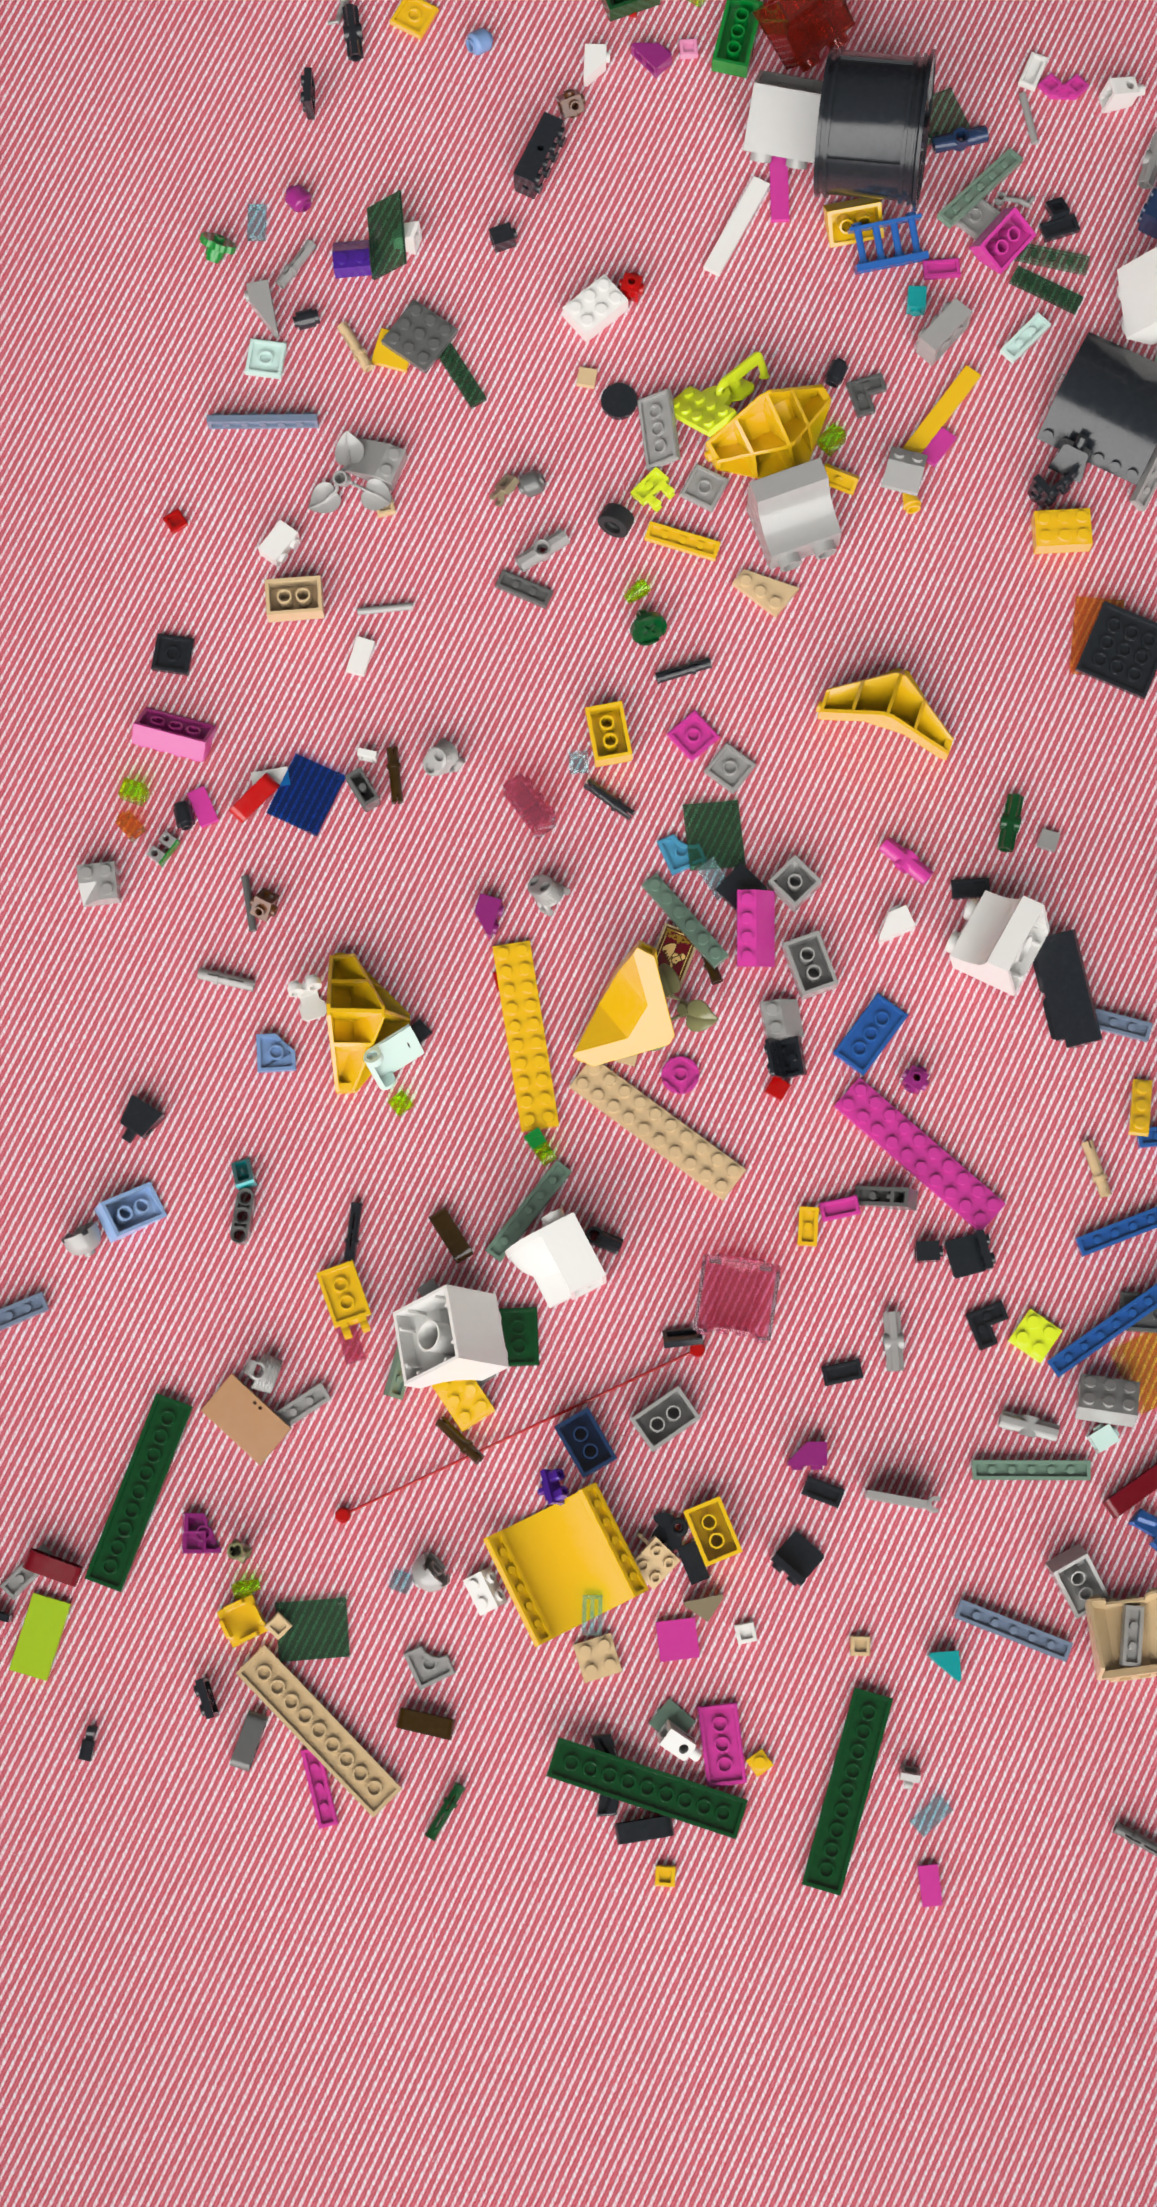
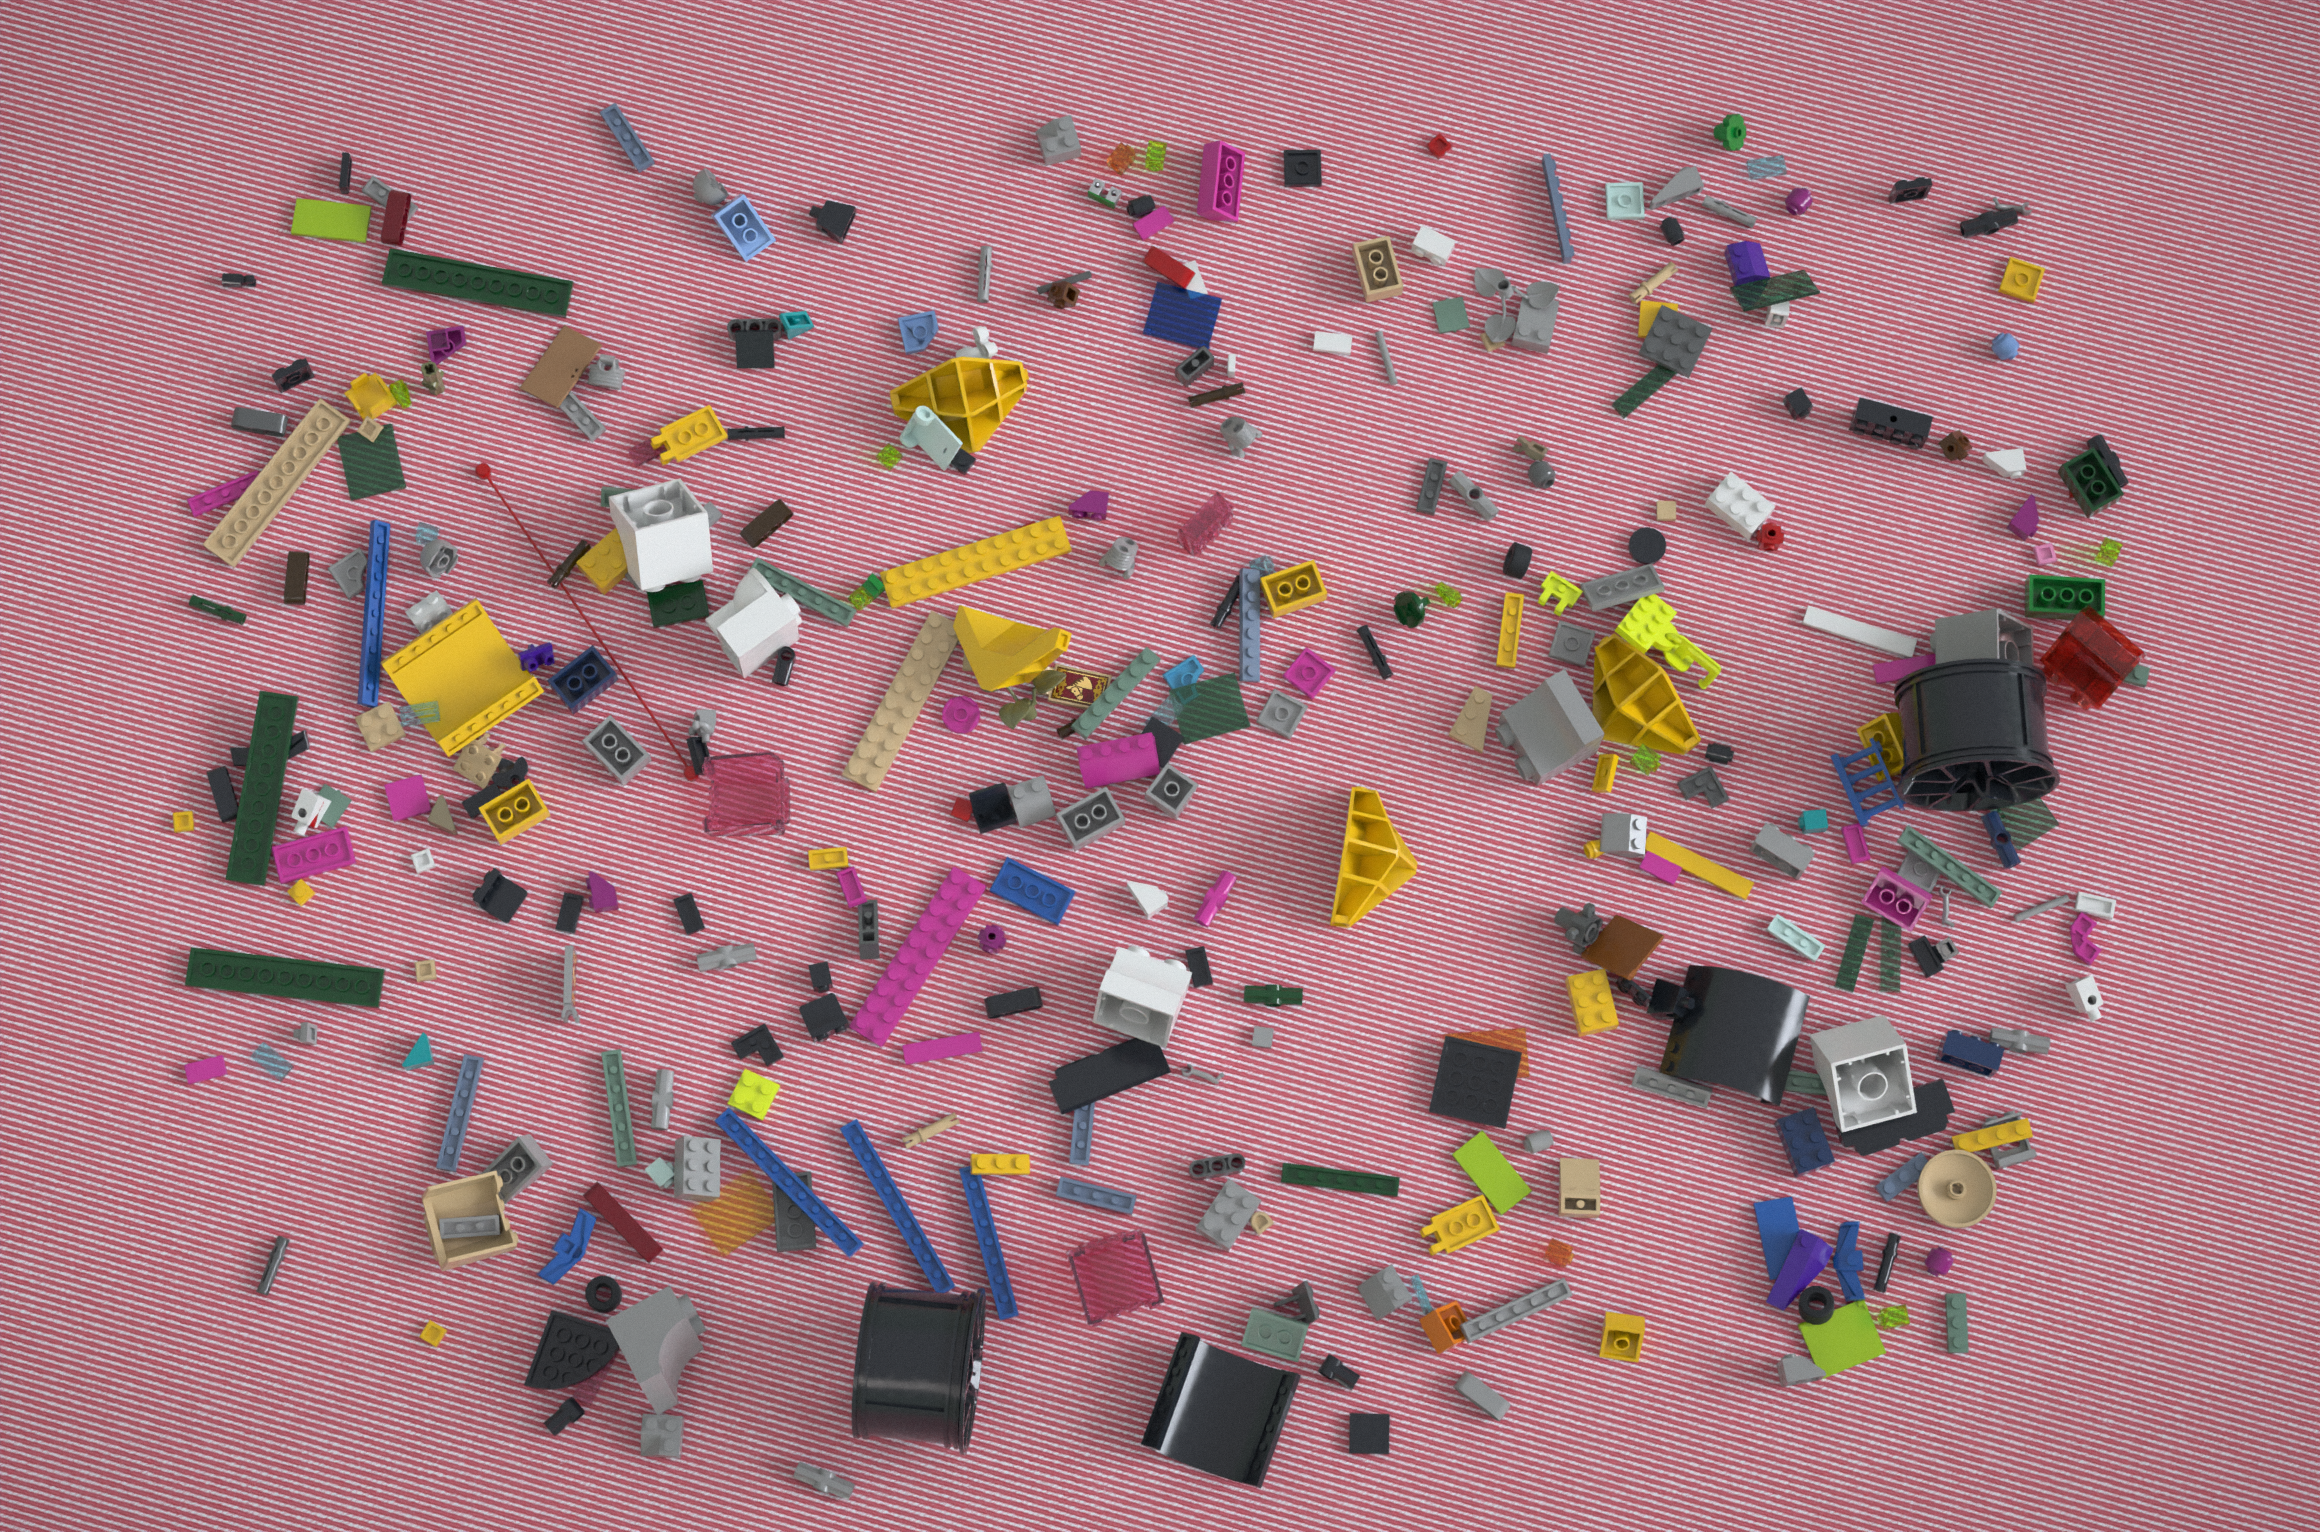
camera: 70 degrees right, 5 degrees down
(265, 1218) = (754, 348): none -> black tile
(352, 541) = (1451, 315): none -> sand green piece
(477, 1648) = (373, 614): none -> blue plate
(637, 782) = (1249, 625): none -> sand blue plate
(651, 1327) = (704, 724): none -> light grey piece
(981, 1069) = (1013, 1002): none -> black beam
(988, 525) = (1580, 927): none -> dark grey piece
(1015, 1145) = (942, 1048): none -> dark pink tile
(1016, 490) = (1622, 947): none -> dark orange piece
(1081, 896) = (1202, 1074): none -> light grey piece

